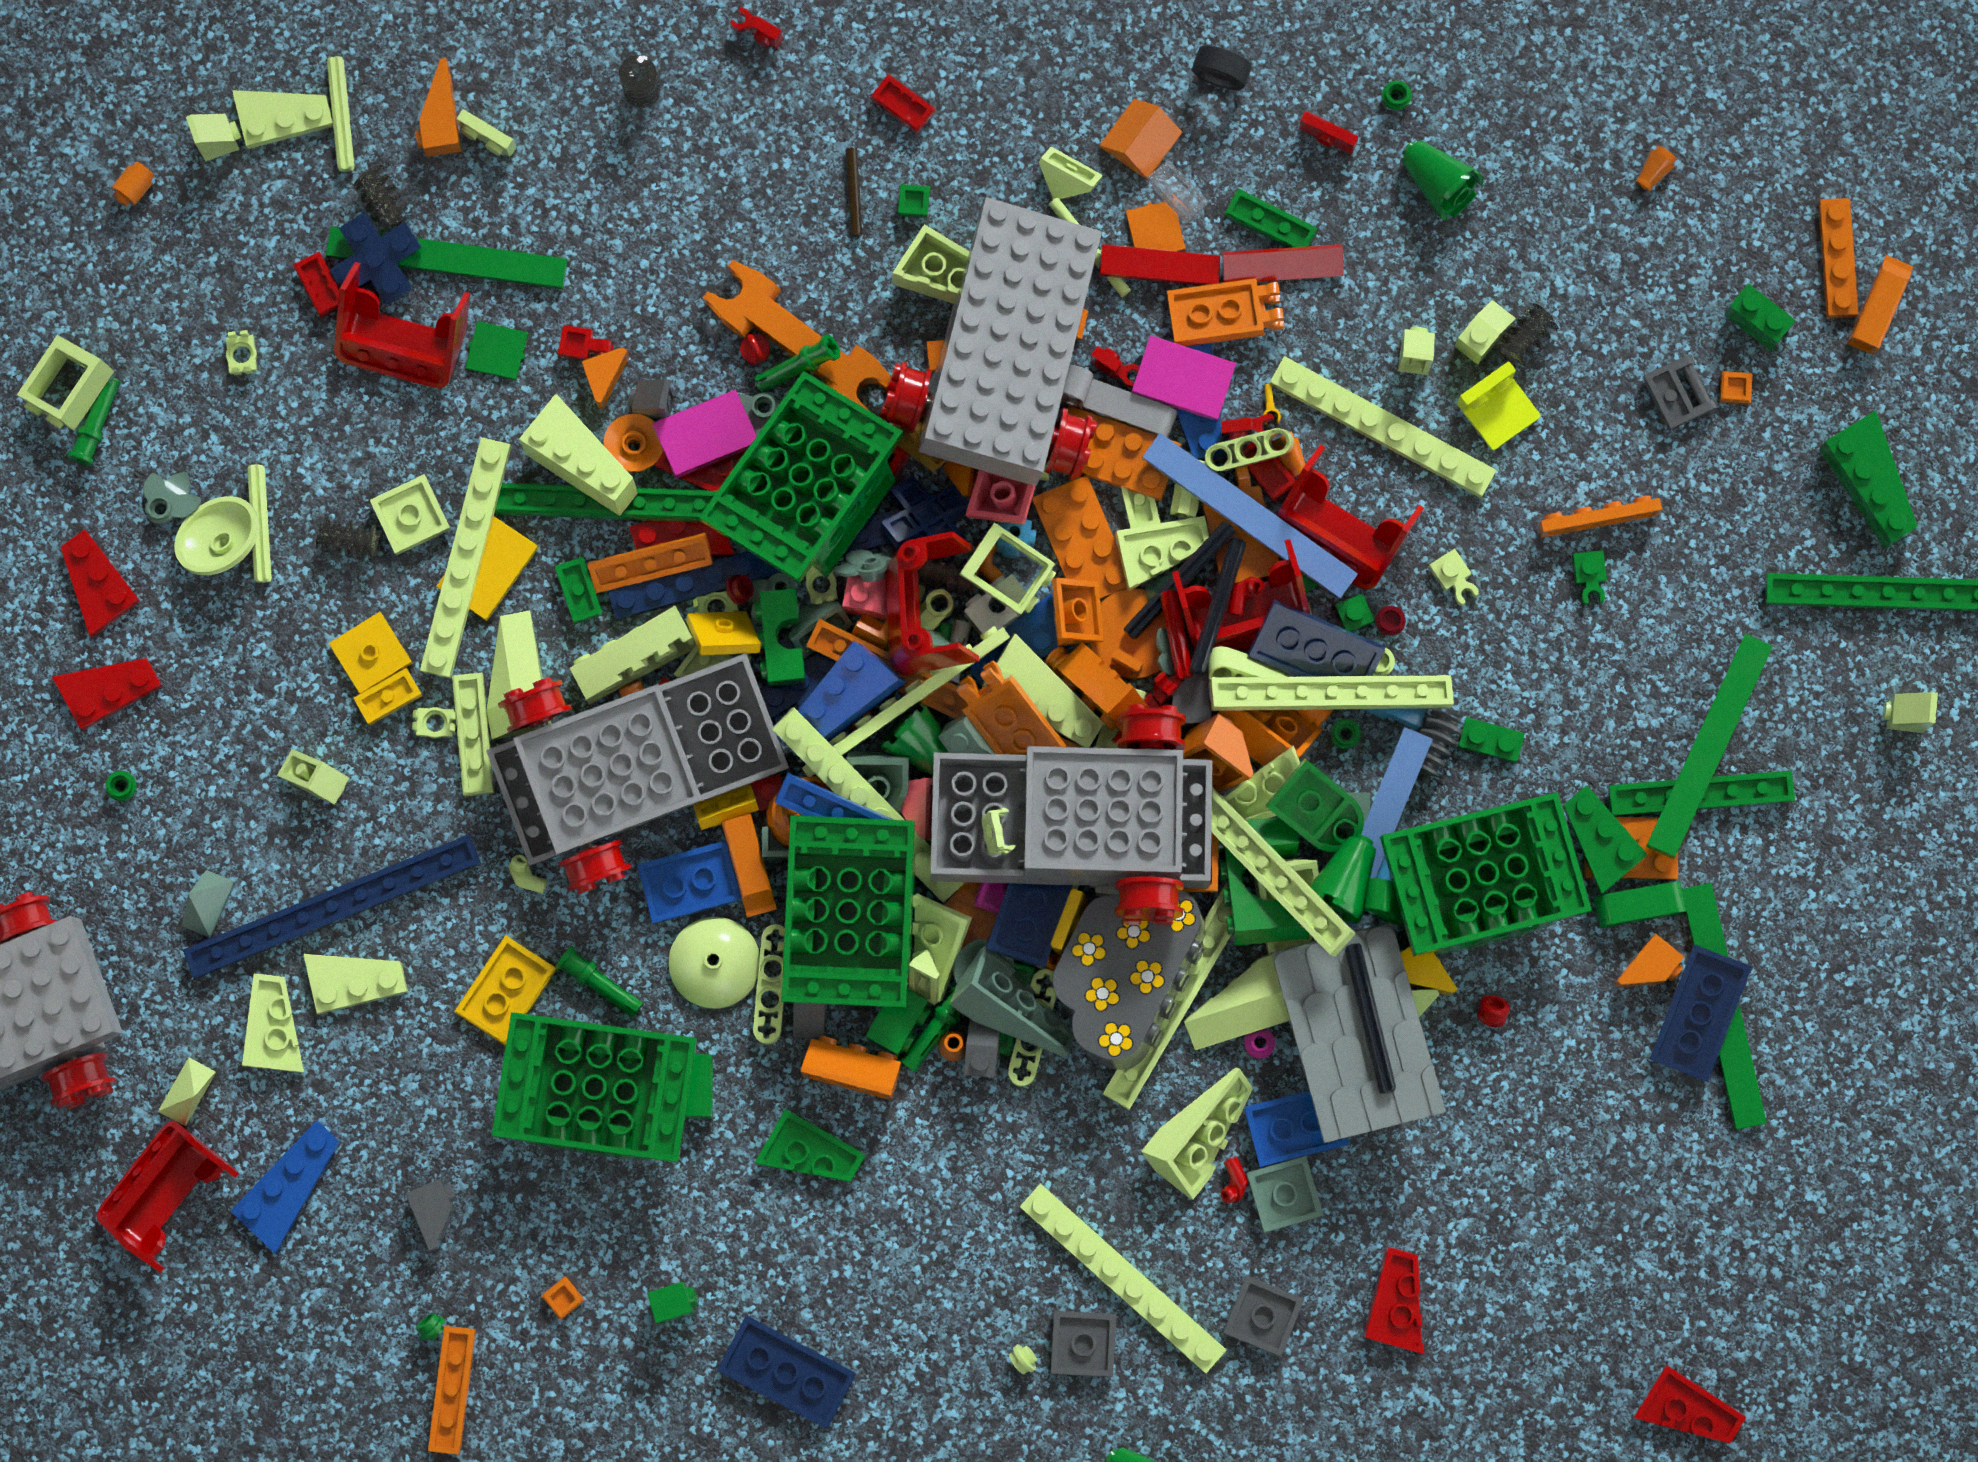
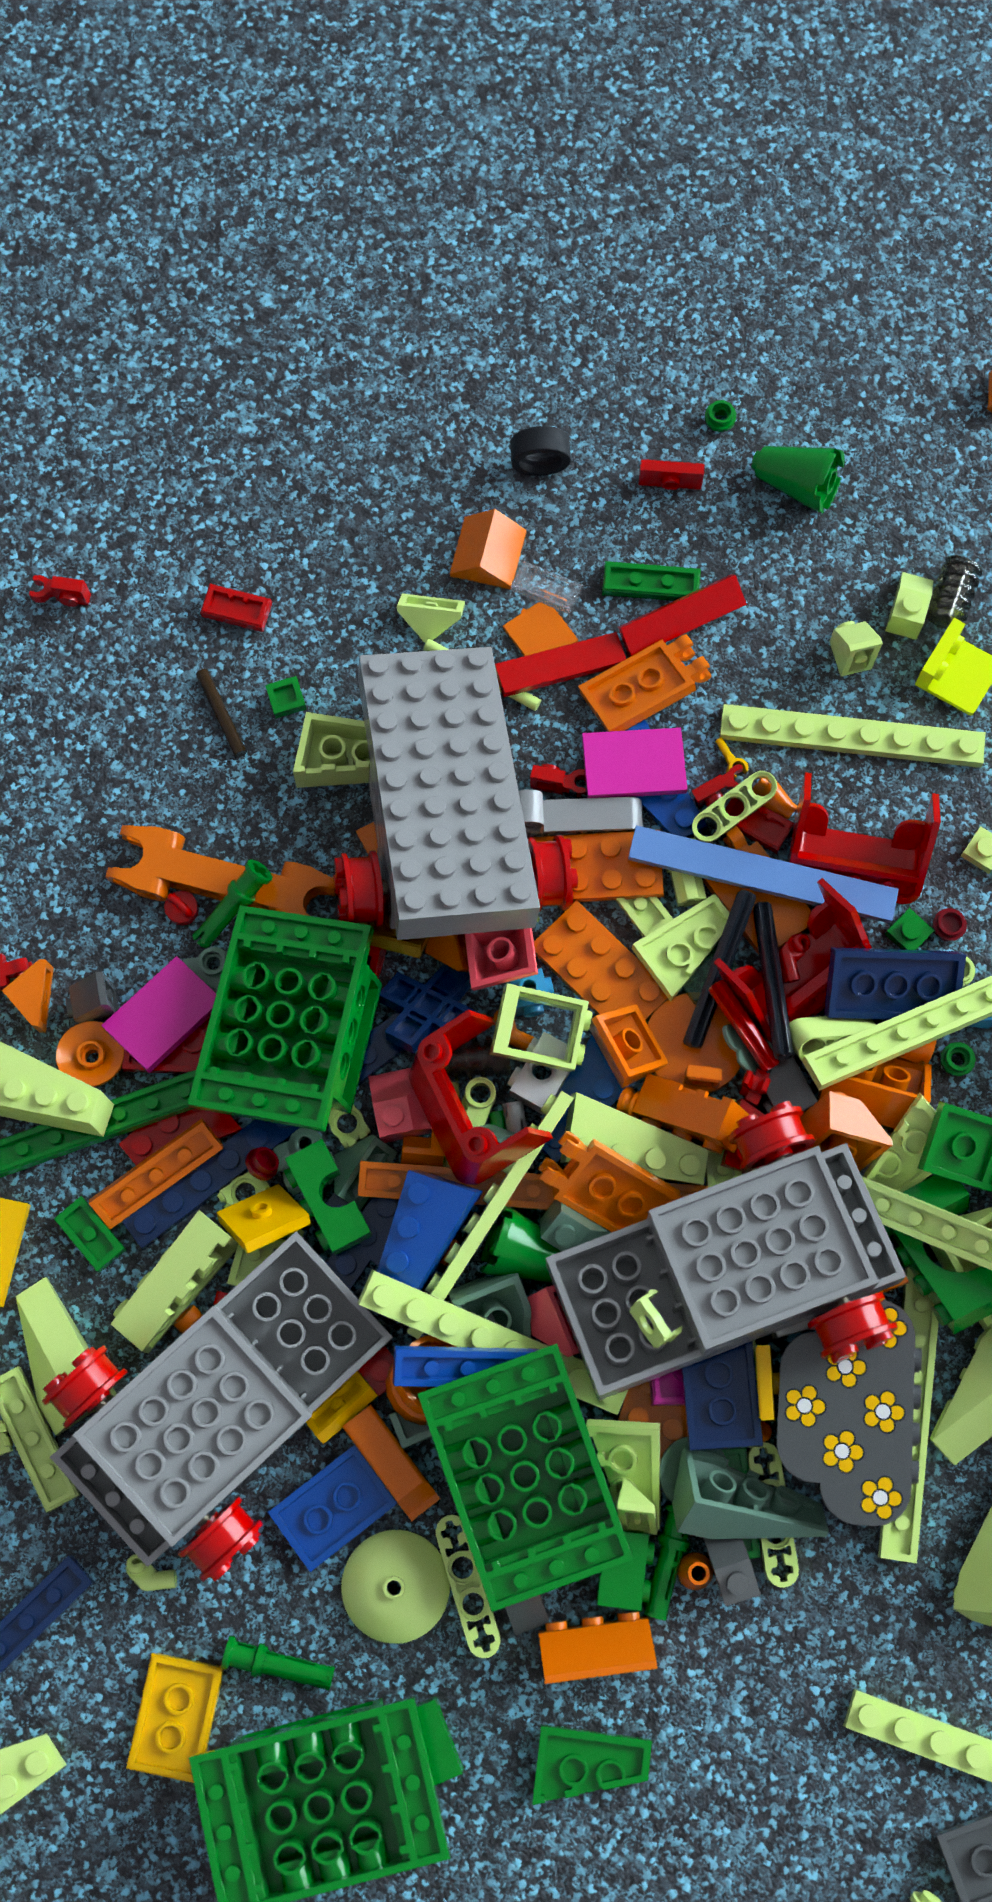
camera: 20 degrees left, 5 degrees down
(864, 563) = (385, 1083): sand green plate -> none

